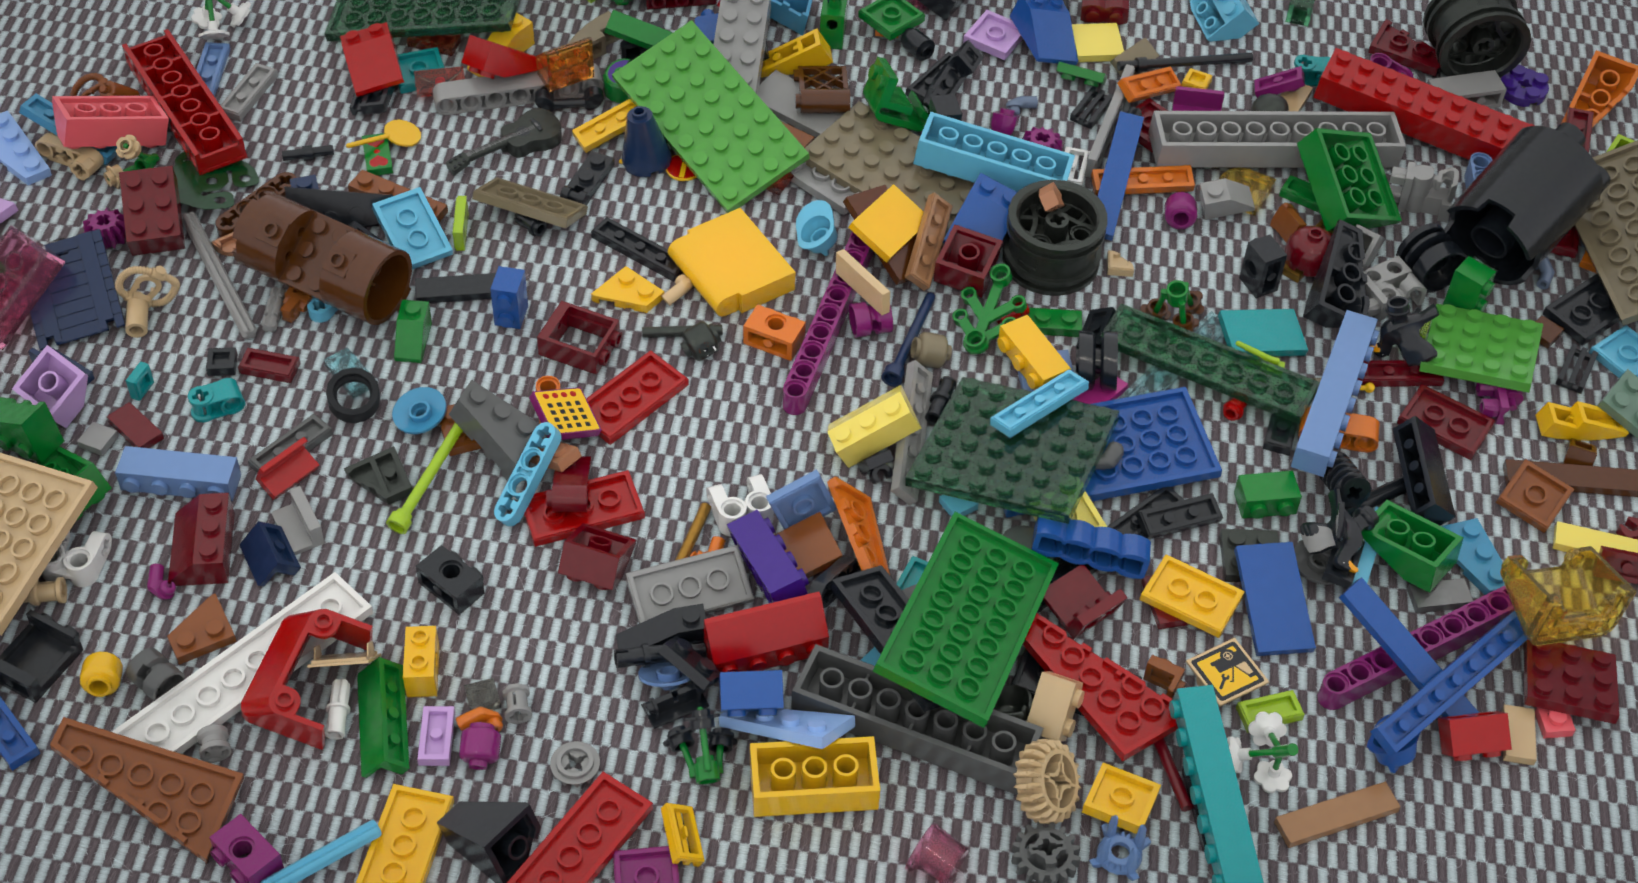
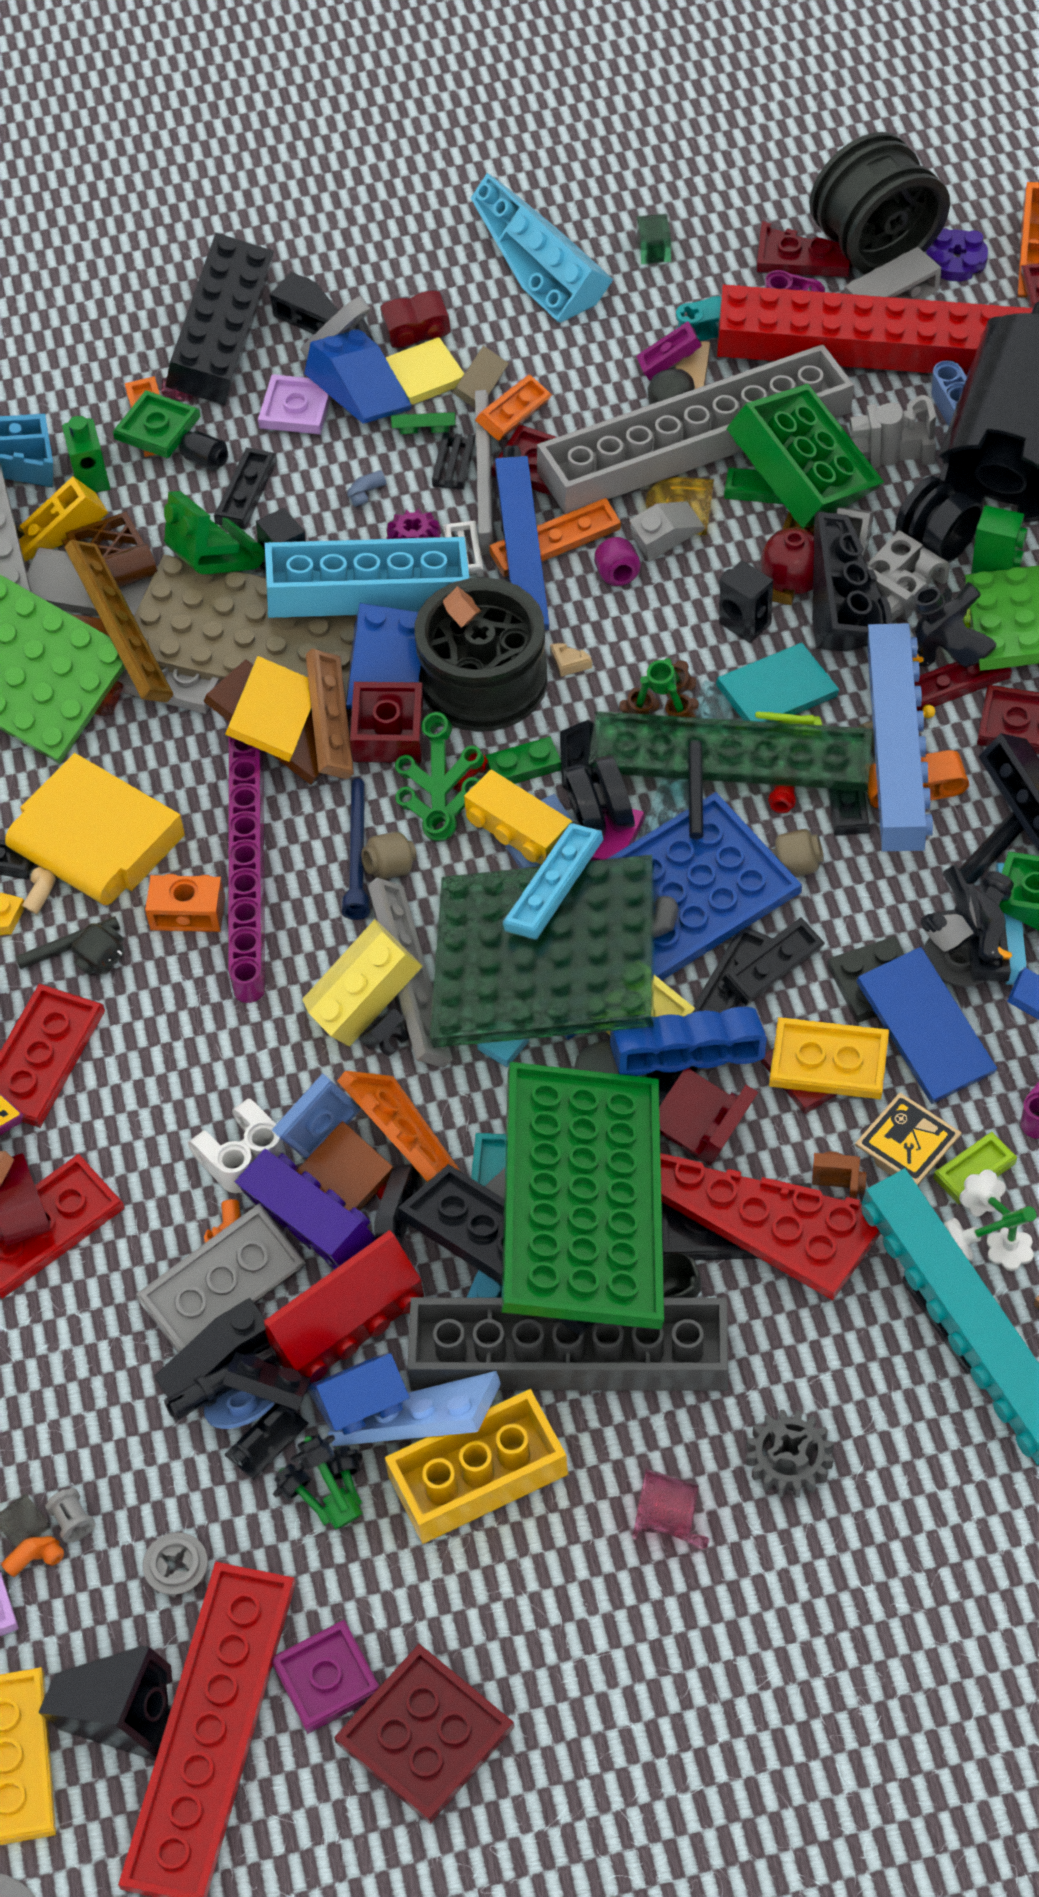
camera: 15 degrees left, 5 degrees up
(480, 745) = (47, 1589): magenta head -> none
(596, 556) = (87, 1284): dark red slope -> none
(677, 834) = (341, 1604): yellow tile -> none
(694, 531) = (194, 1206): pearl gold bar -> none
(807, 131) = (119, 621): none -> pearl gold tile
(816, 227) = (180, 744): medium azure piece -> none
(863, 282) = (272, 800): tan tile -> none
(866, 319) = (300, 839): magenta wheel -> none
(940, 399) = (427, 916): black pin -> none
(954, 72) = (265, 477): black slope -> none
(1004, 121) = (355, 519): magenta plate -> none
(1047, 781) = (758, 1363): tan gear -> none
(1055, 705) = (727, 1262): tan brick -> none
(1121, 795) = (849, 1347): yellow plate -> none
(1134, 845) = (859, 1399): medium blue piece -> none
(1142, 64) = (495, 382): black bar -> none
(1170, 379) = (695, 773): none -> black bar
(1173, 775) = (896, 1293): dark red bar -> none
(1197, 79) = (566, 382): yellow tile -> none
(1197, 99) = (579, 410): magenta panel -> none
(1230, 448) = (799, 851): none -> dark tan head
(1267, 494) = (865, 894): green brick -> none
(1287, 220) = (750, 531): dark orange tile -> none
(1347, 478) = (954, 845): black piece -> none

